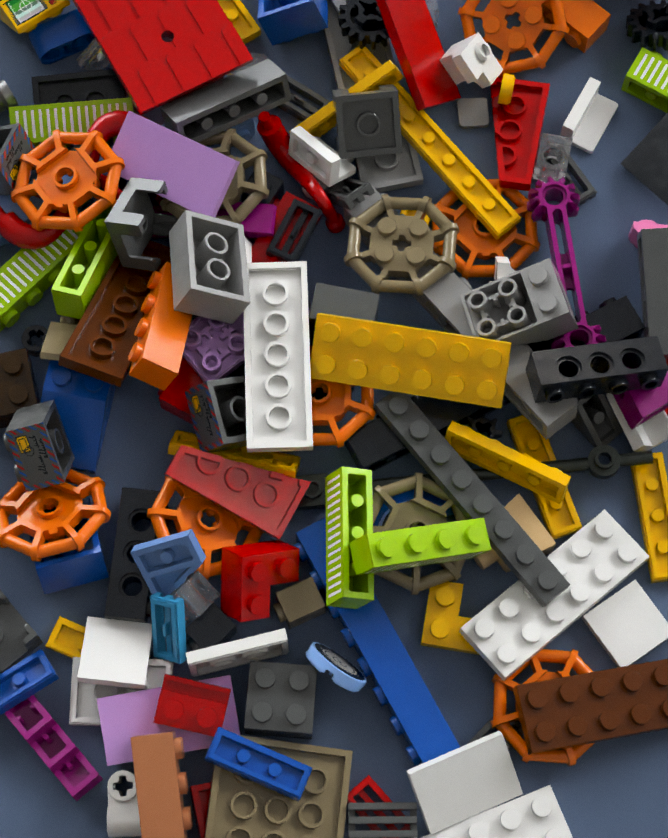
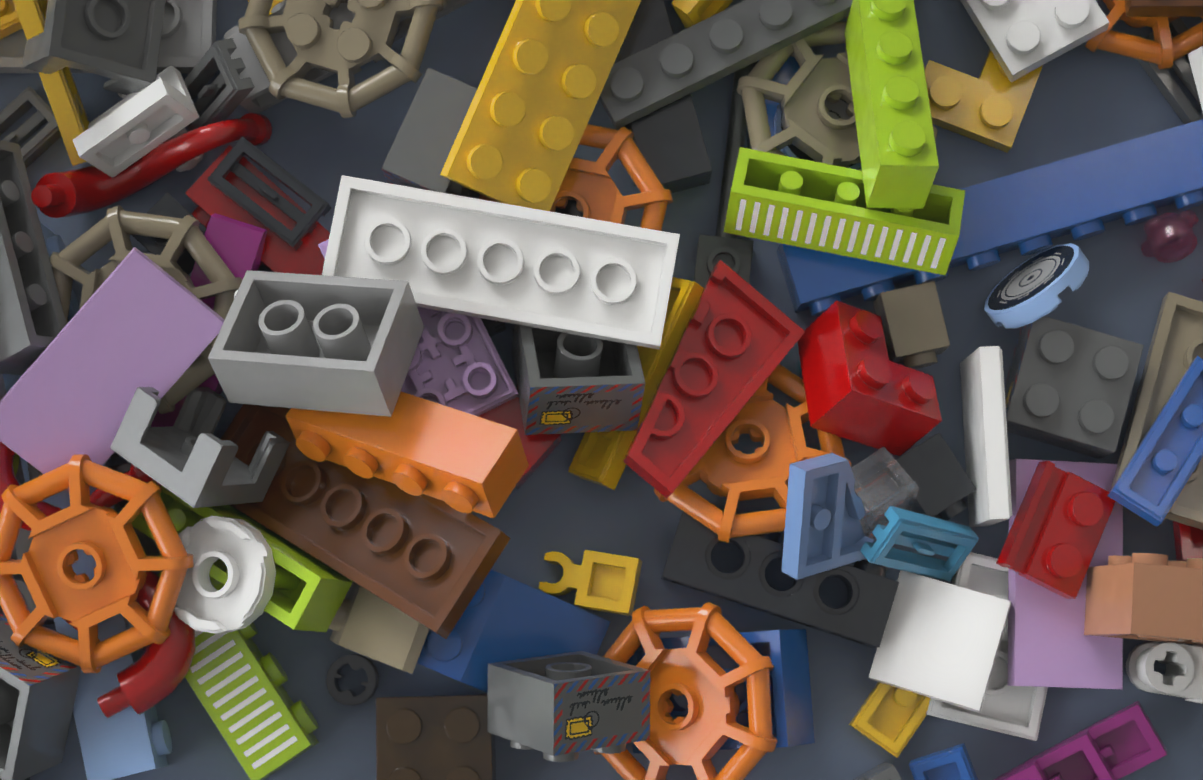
camera: 75 degrees left, 10 degrees up
(74, 261) = (248, 582): none -> white tile
(115, 457) = (602, 581): none -> yellow plate
(387, 747) = (1170, 236): none -> clear pink plate

